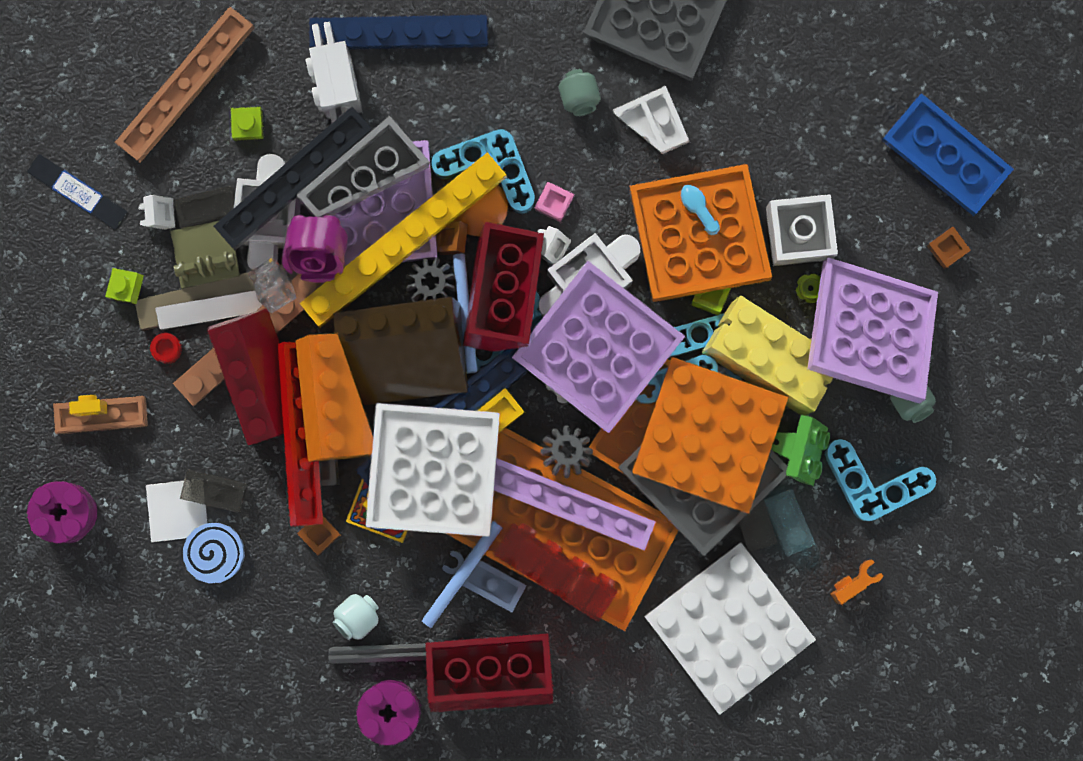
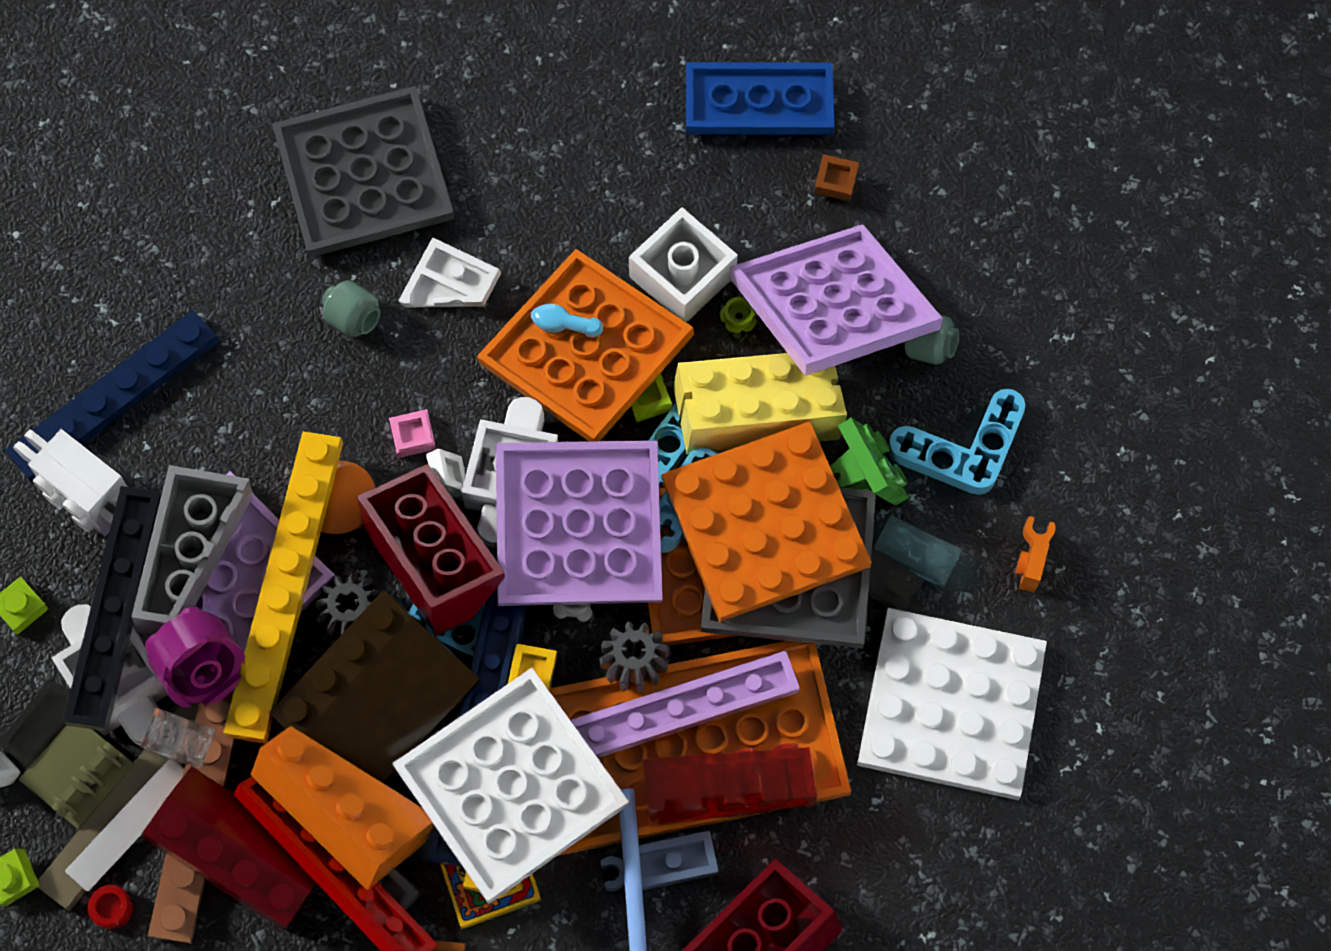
camera: 40 degrees left, 15 degrees down
(452, 239) = (336, 546): dark orange plate -> none
(463, 299) = (384, 582): light blue bar -> none
(485, 144) = (291, 433): medium azure beam -> none

